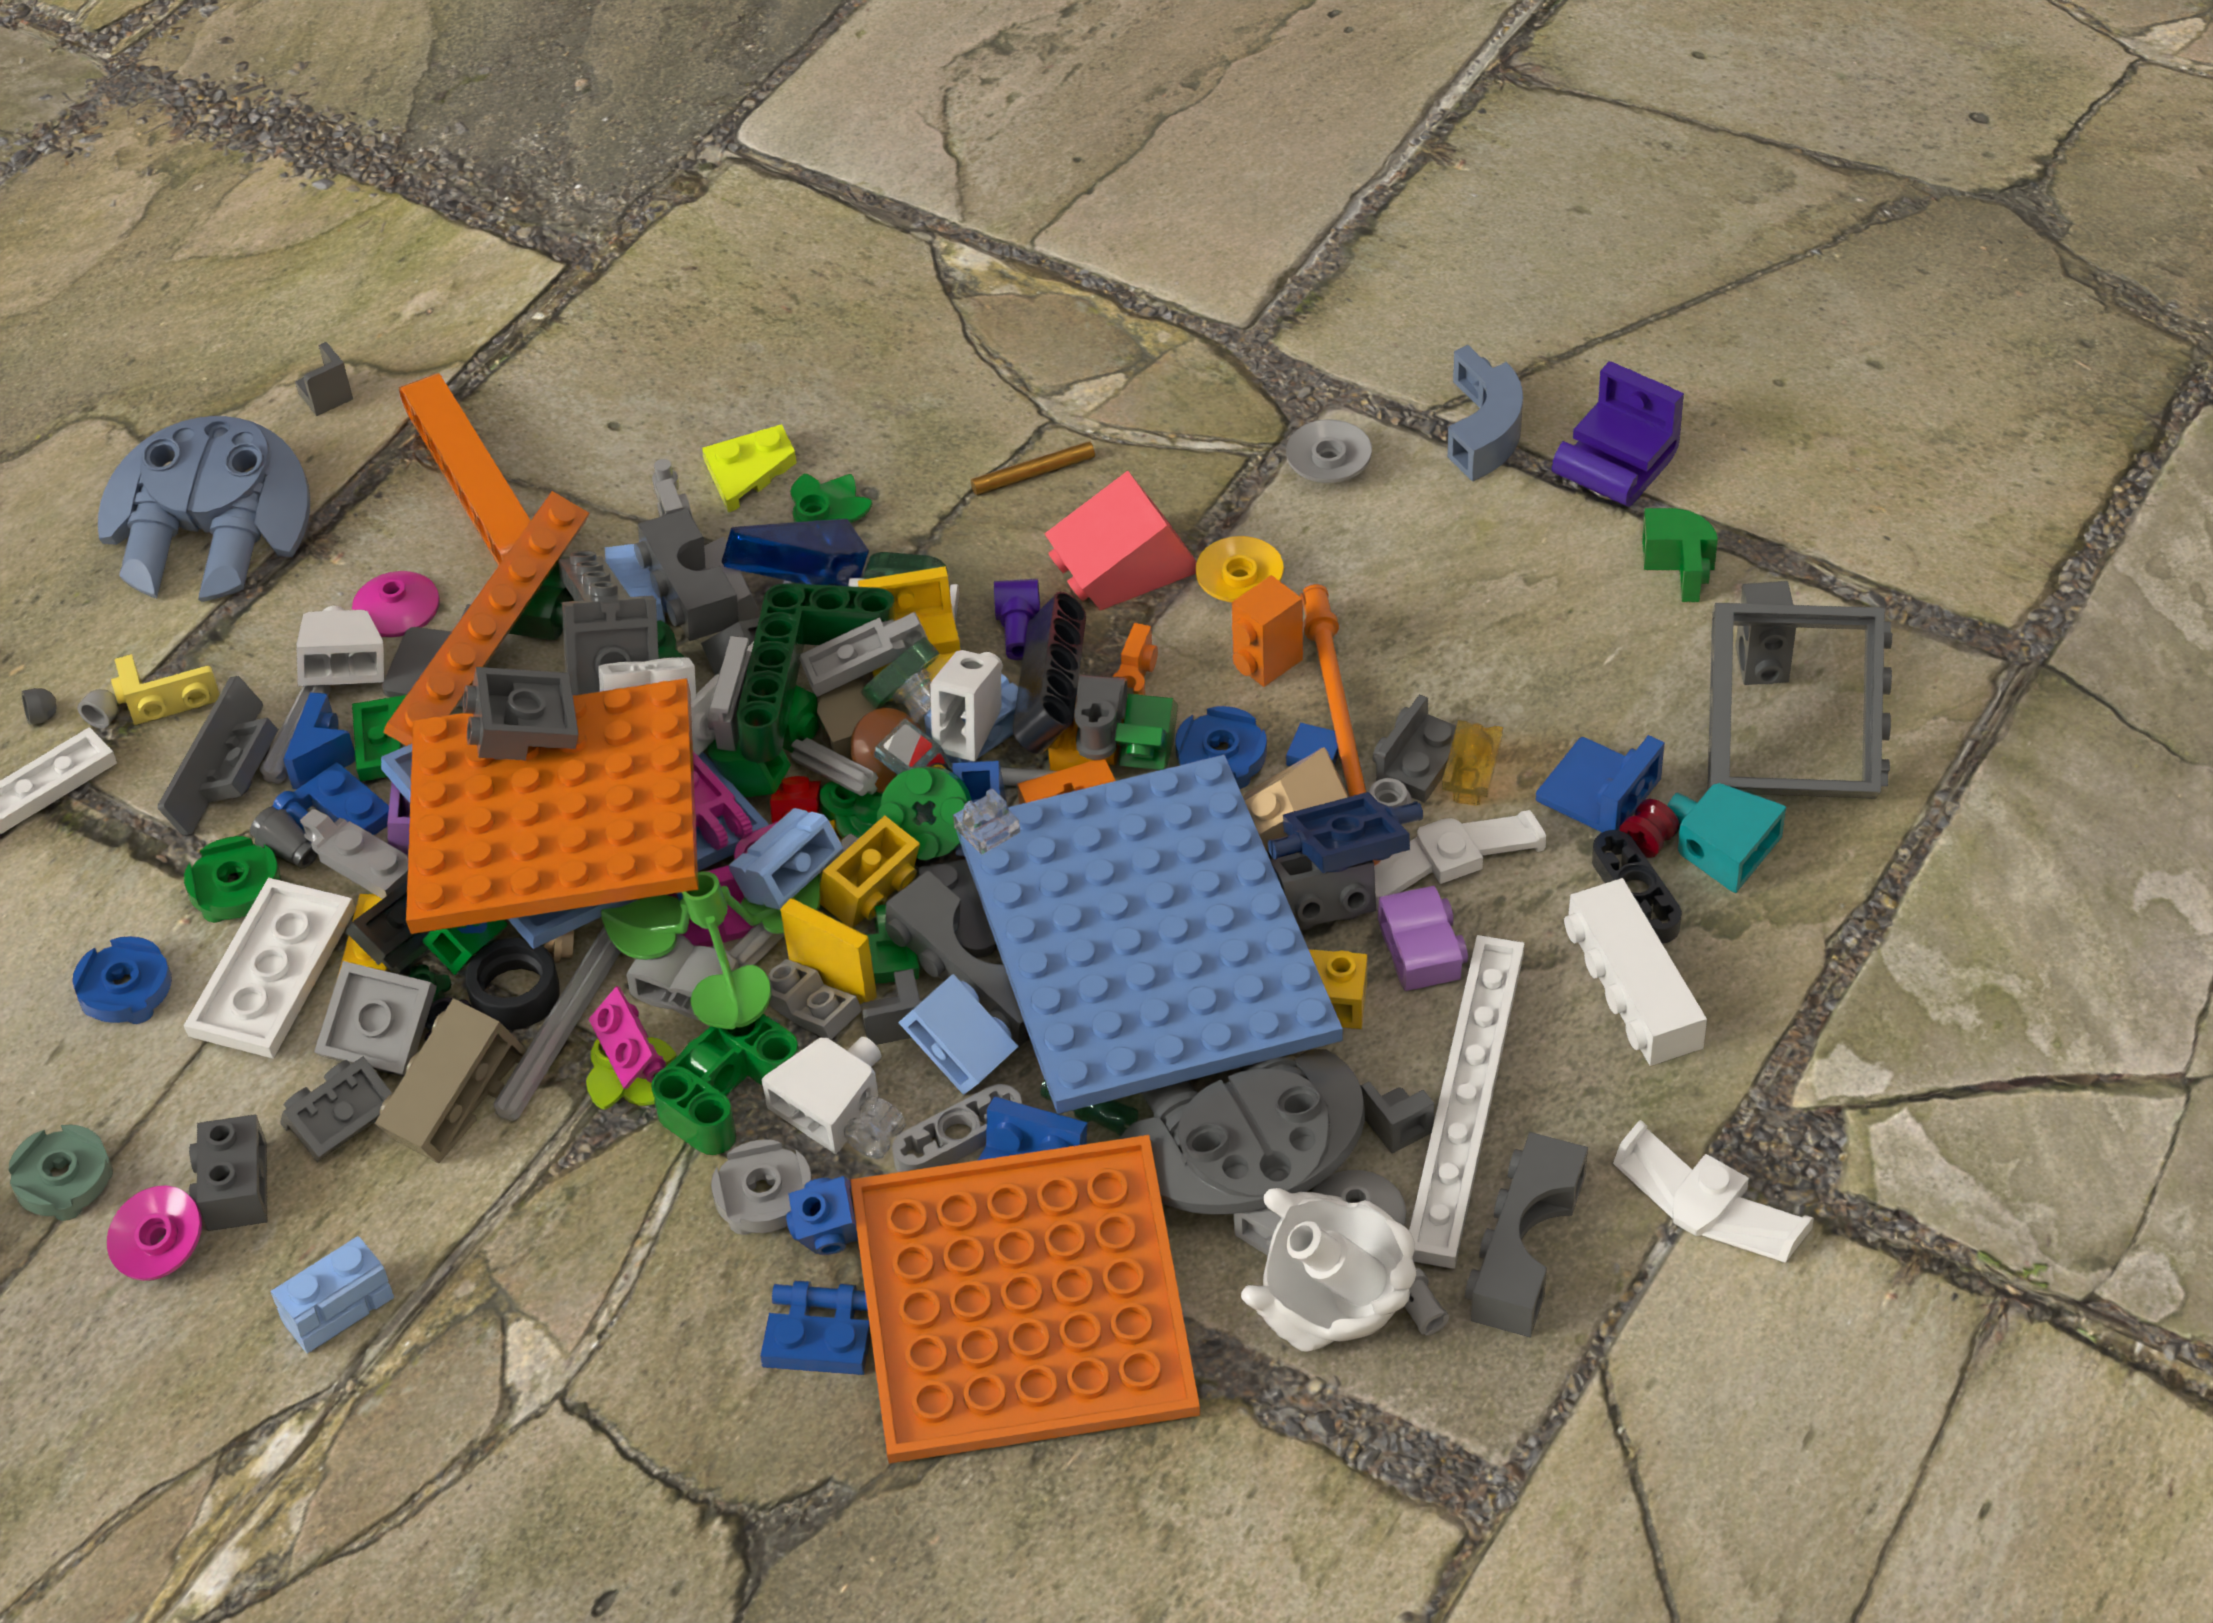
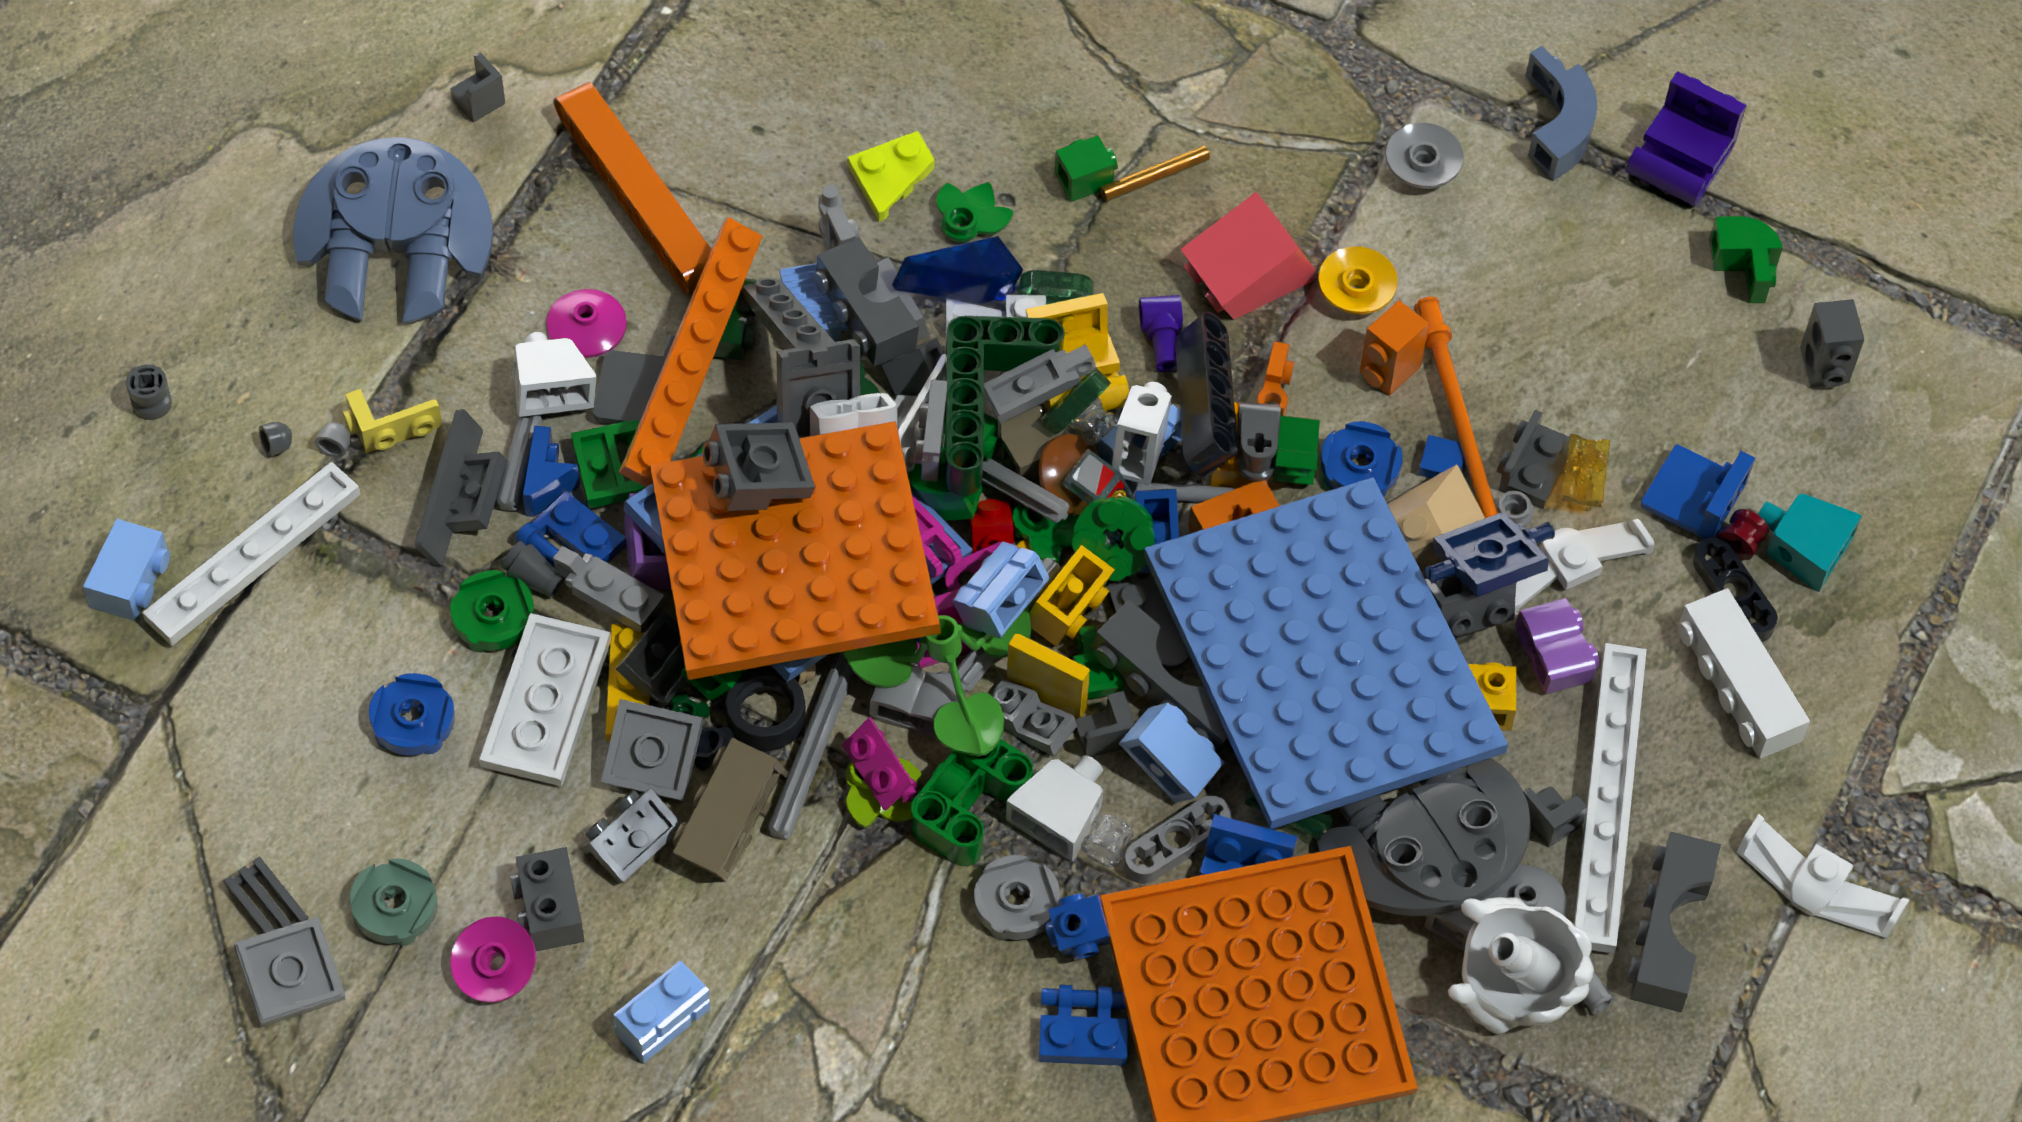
camera: 10 degrees left, 10 degrees up
(955, 458) = (1084, 167): none -> green brick
(986, 822) = (1177, 554): clear tile -> none
(1876, 684) = (1933, 432): dark grey window -> none

